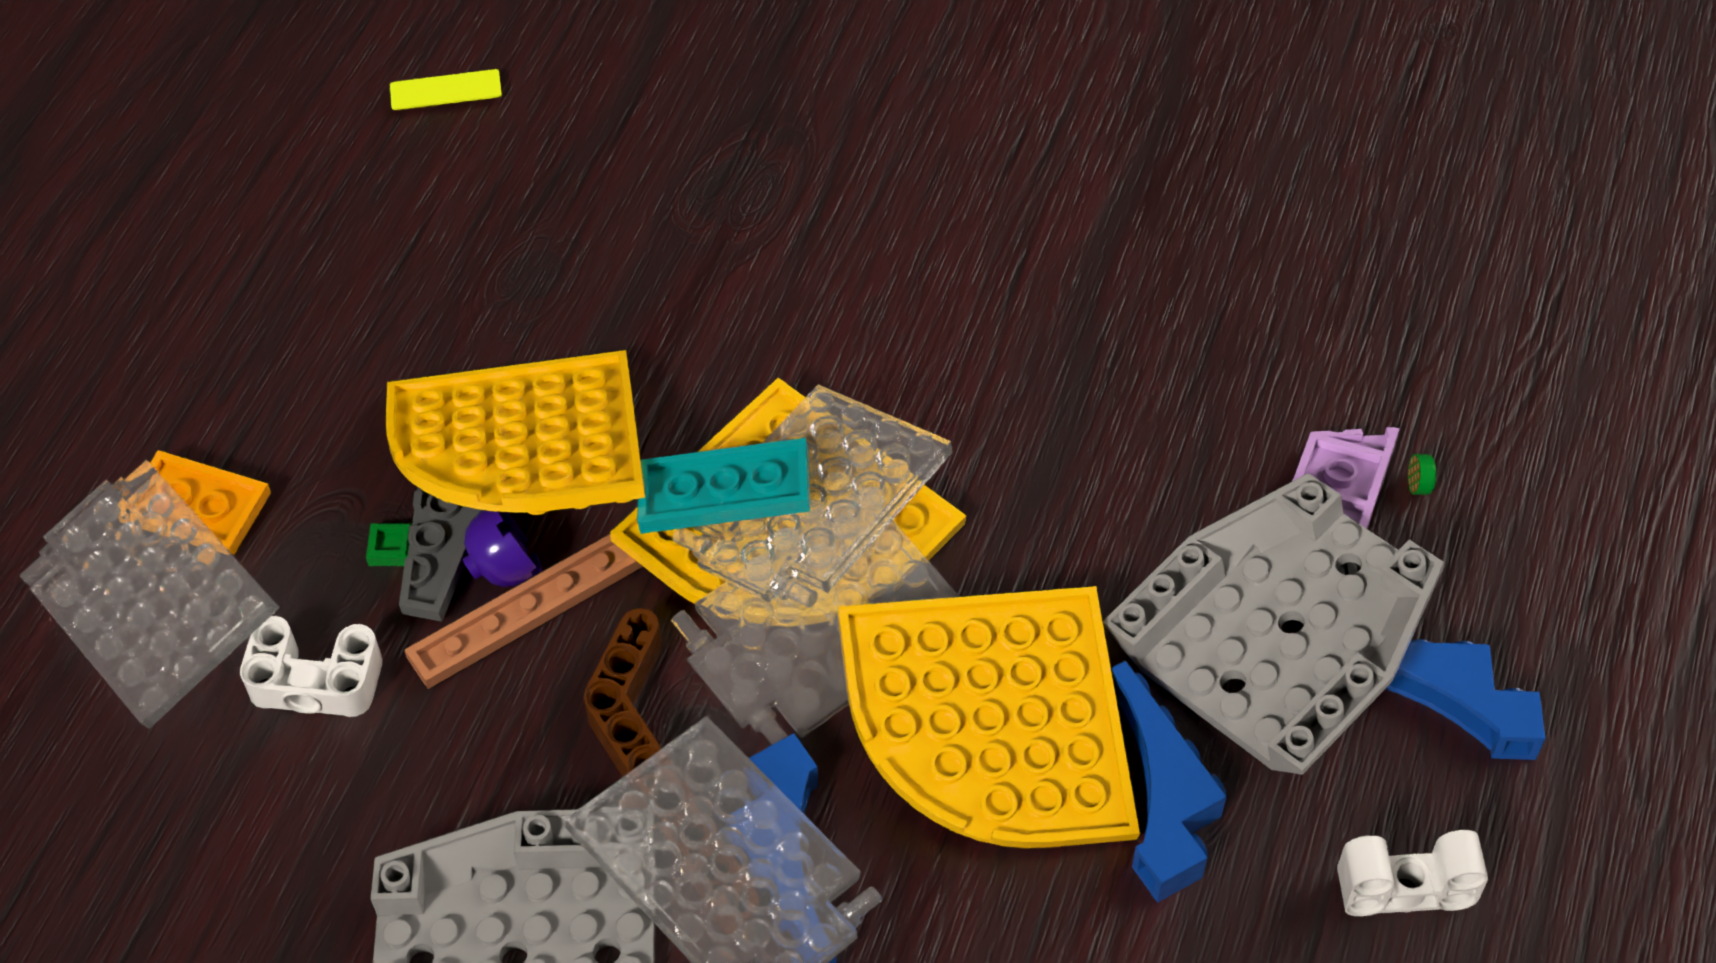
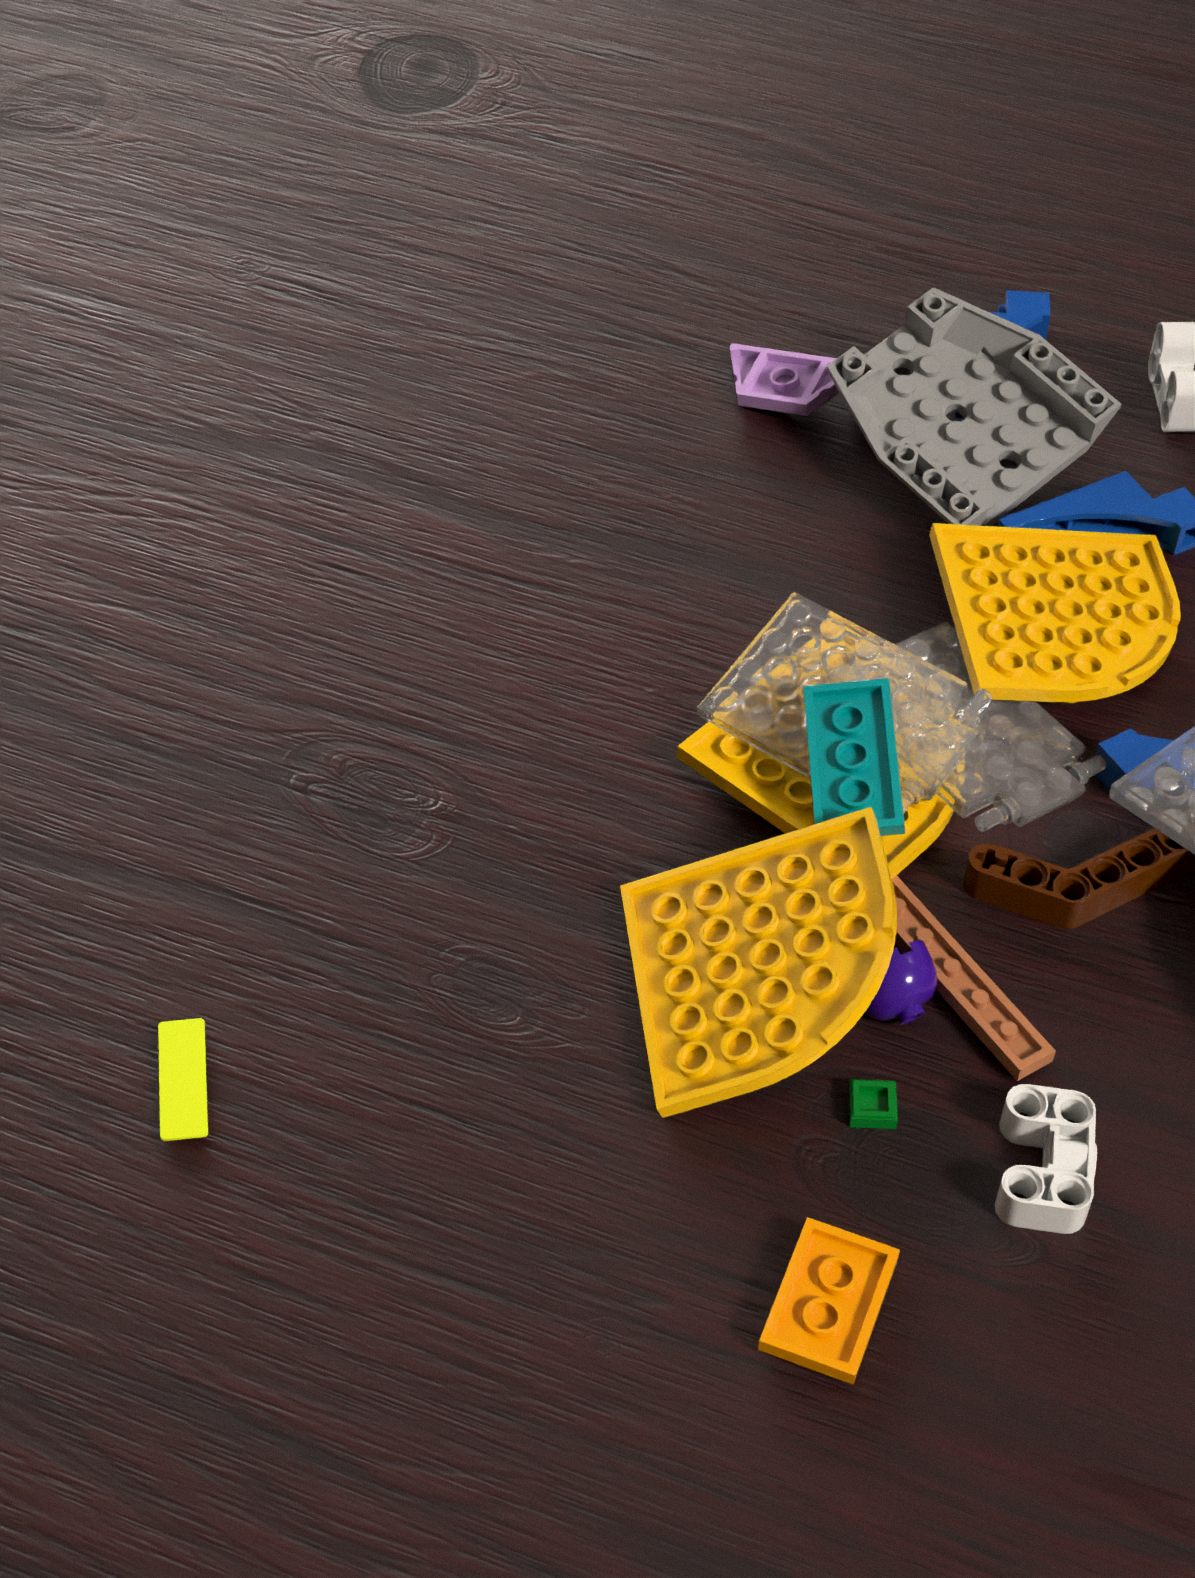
camera: 90 degrees left, 5 degrees down
(146, 591) = (969, 1324): clear plate -> none
(434, 556) = (892, 1052): dark grey wing -> none
(1421, 474) = (781, 335): green tile -> none

